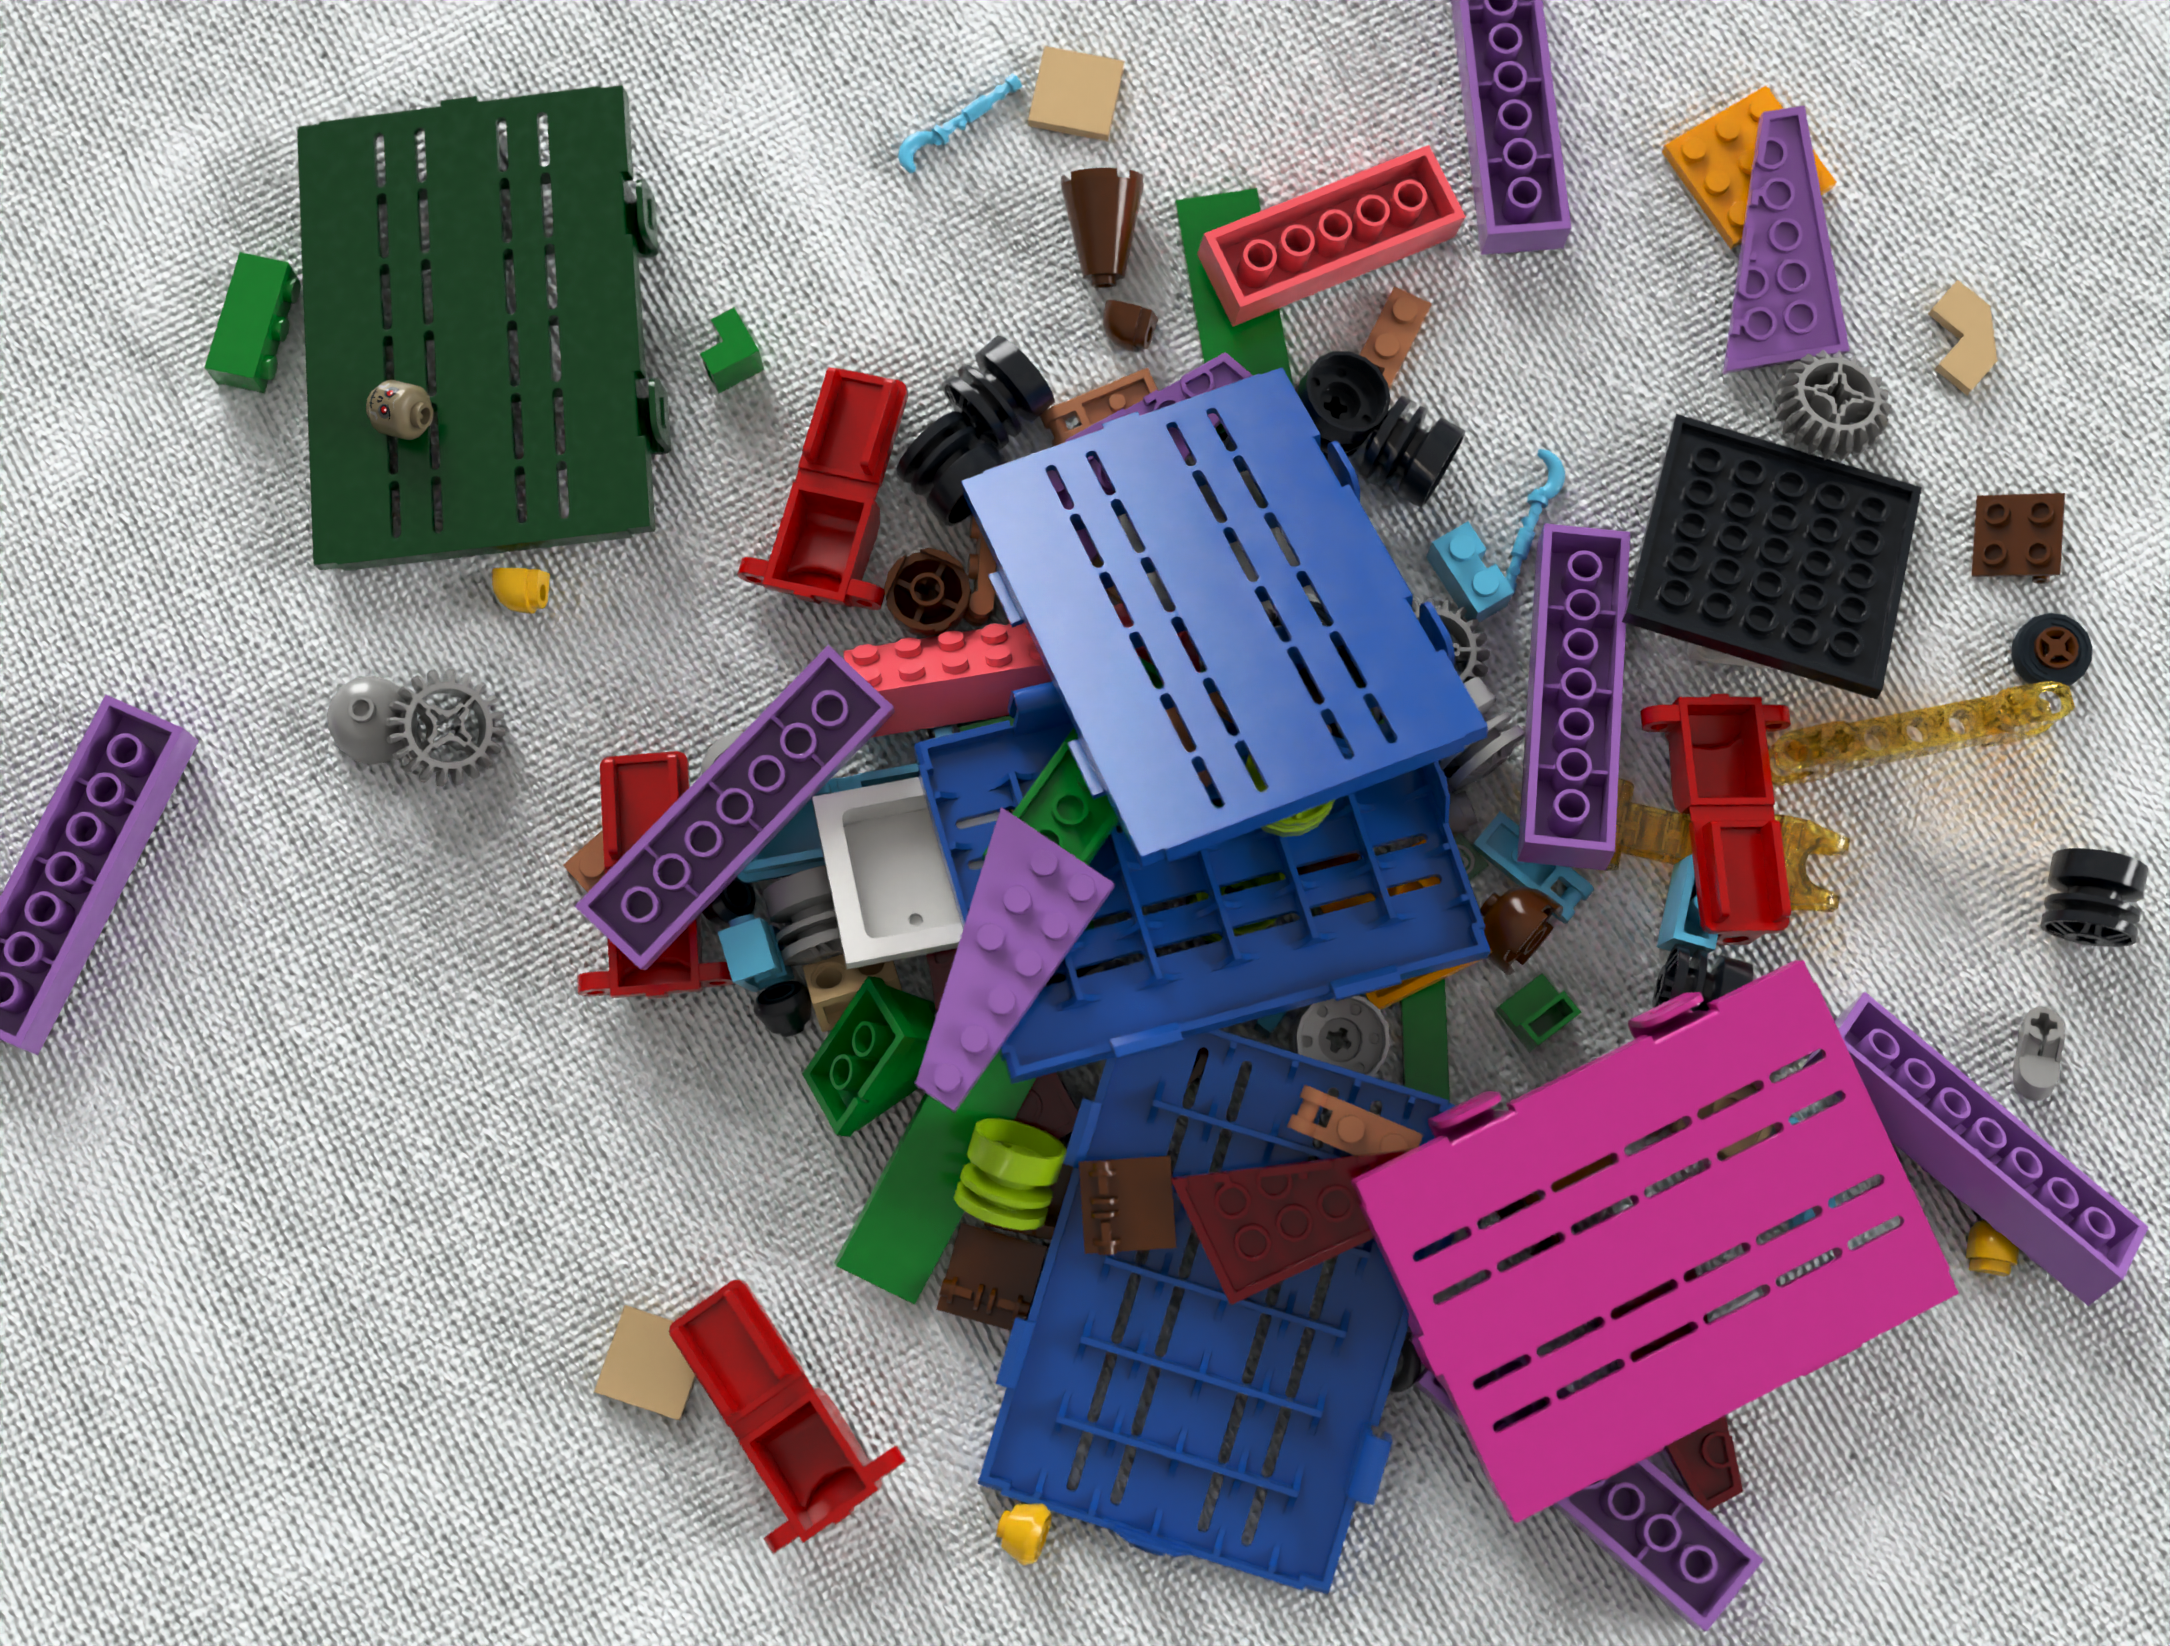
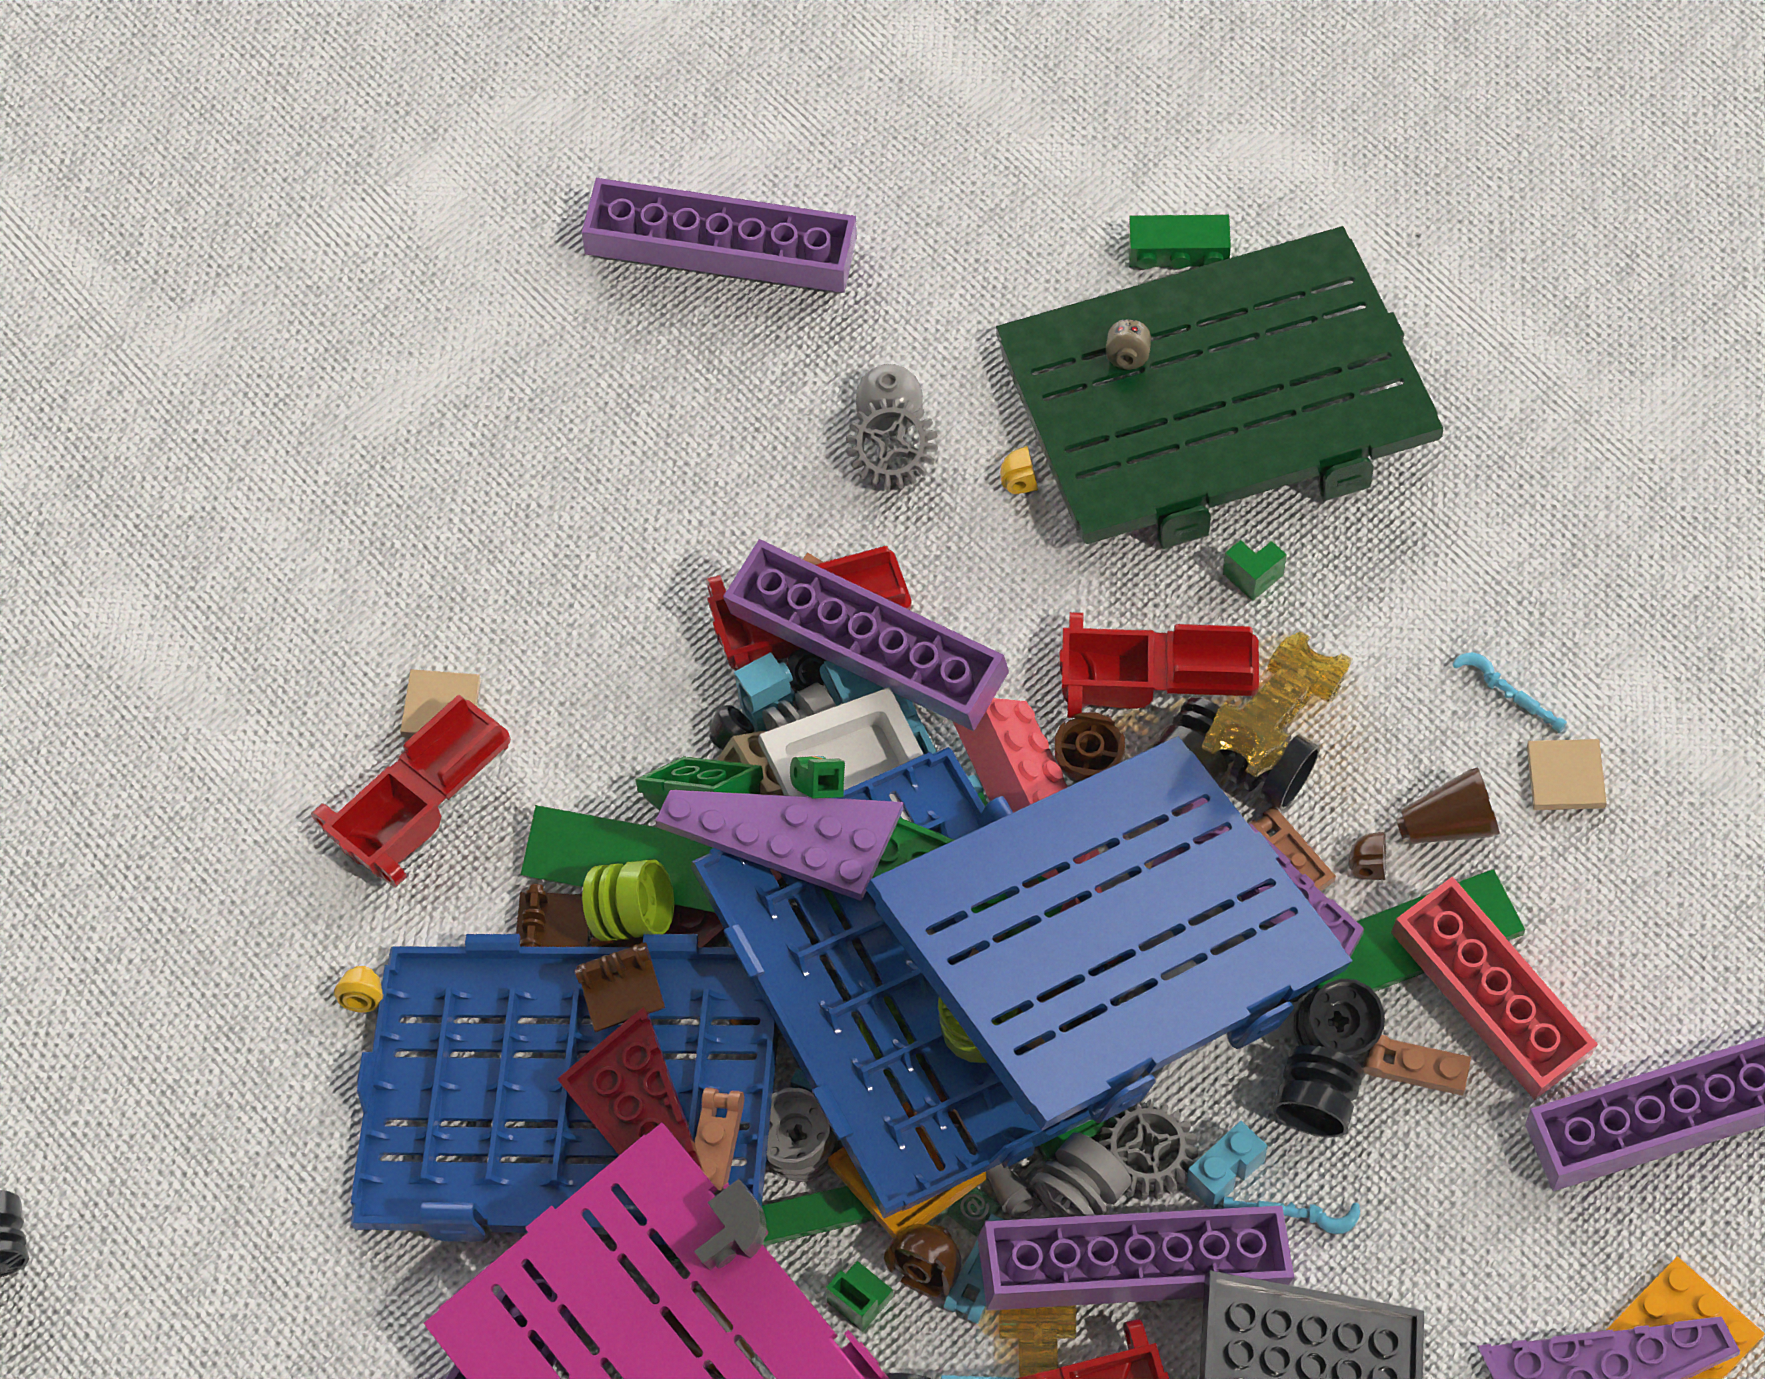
camera: 80 degrees right, 15 degrees down
(933, 905) = (818, 776): none -> green leg
(980, 390) = (1259, 726): none -> clear yellow piece
(1514, 1112) = (743, 1225): none -> dark grey brick

